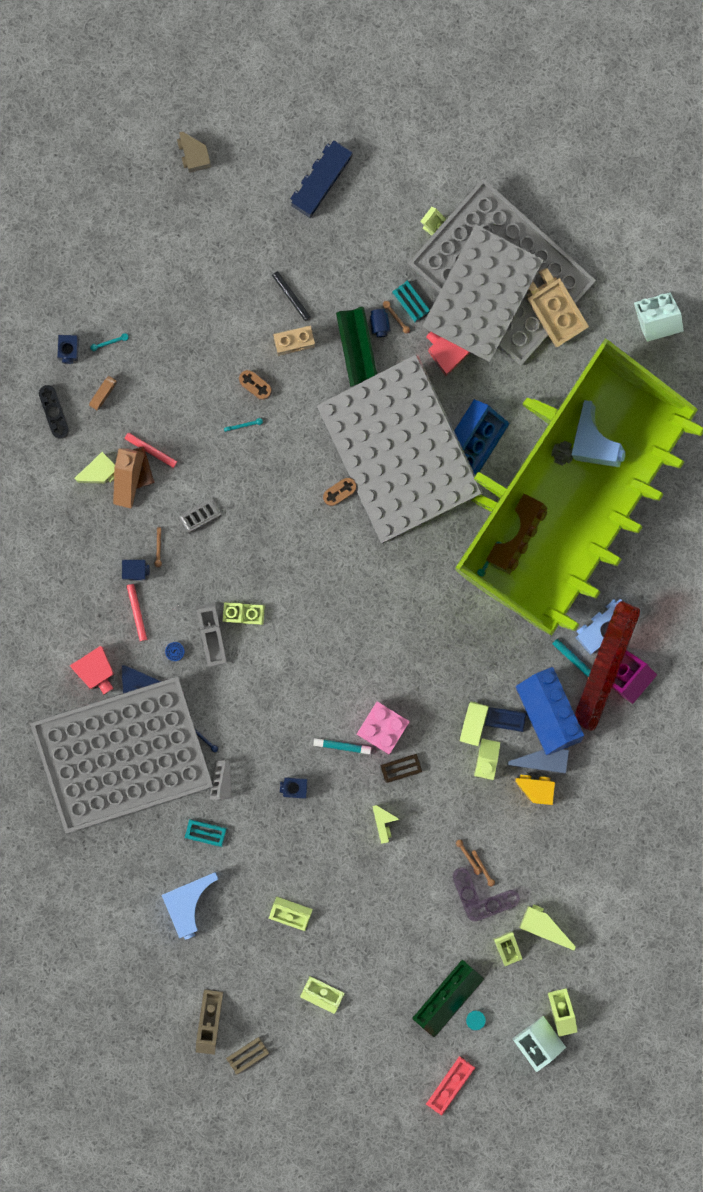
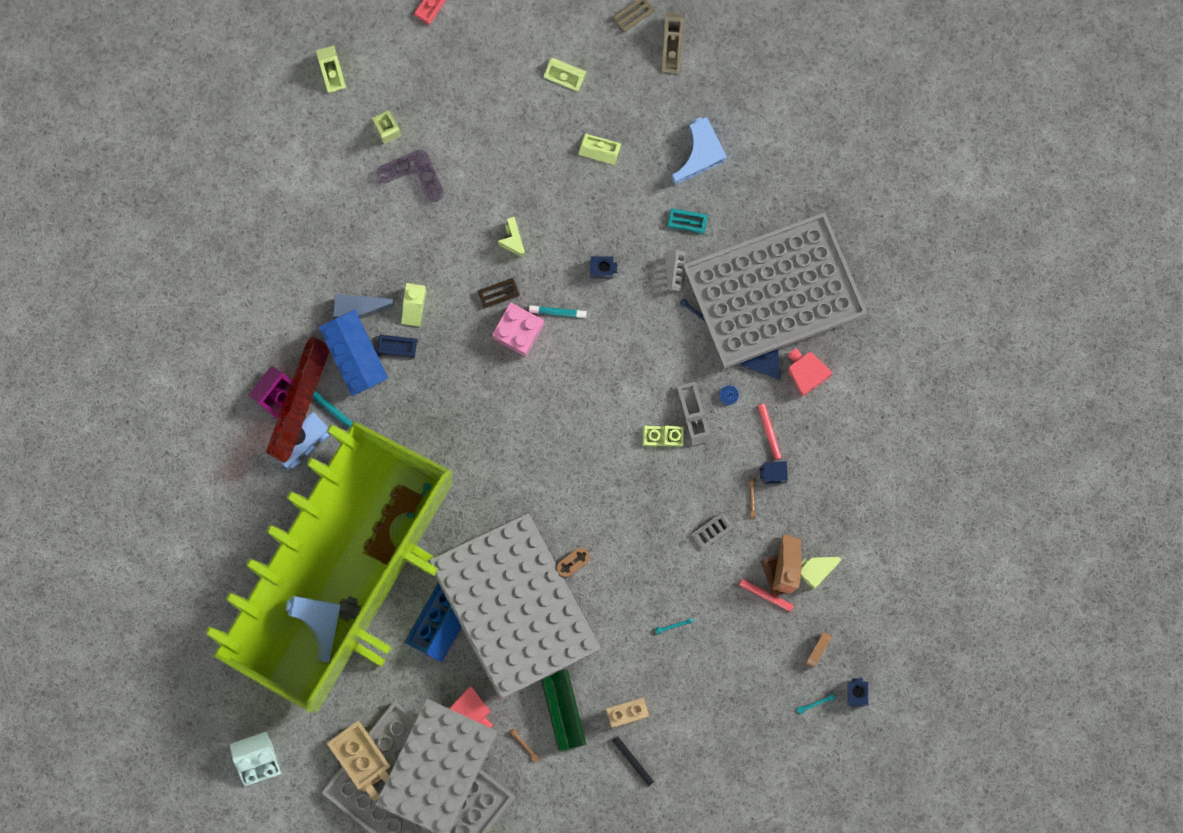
camera: 175 degrees left, 5 degrees down
(53, 427) = (878, 639): black beam -> none
(252, 388) = (661, 670): medium nougat beam -> none
(379, 323) = (541, 736): dark blue brick -> none
(417, 297) = (499, 749): teal tile -> none
(448, 998) = (443, 76): dark green panel -> none
(474, 723) = (428, 339): yellowish green slope -> none
(475, 1020) = (415, 58): teal tile -> none
(477, 870) = (419, 199): medium nougat hinge -> none
(491, 882) = (405, 188): medium nougat hinge -> none
(537, 791) = (361, 277): yellow slope -> none
(539, 1043) = (352, 37): light aqua slope -> none
(542, 925) = (354, 149): yellowish green slope -> none

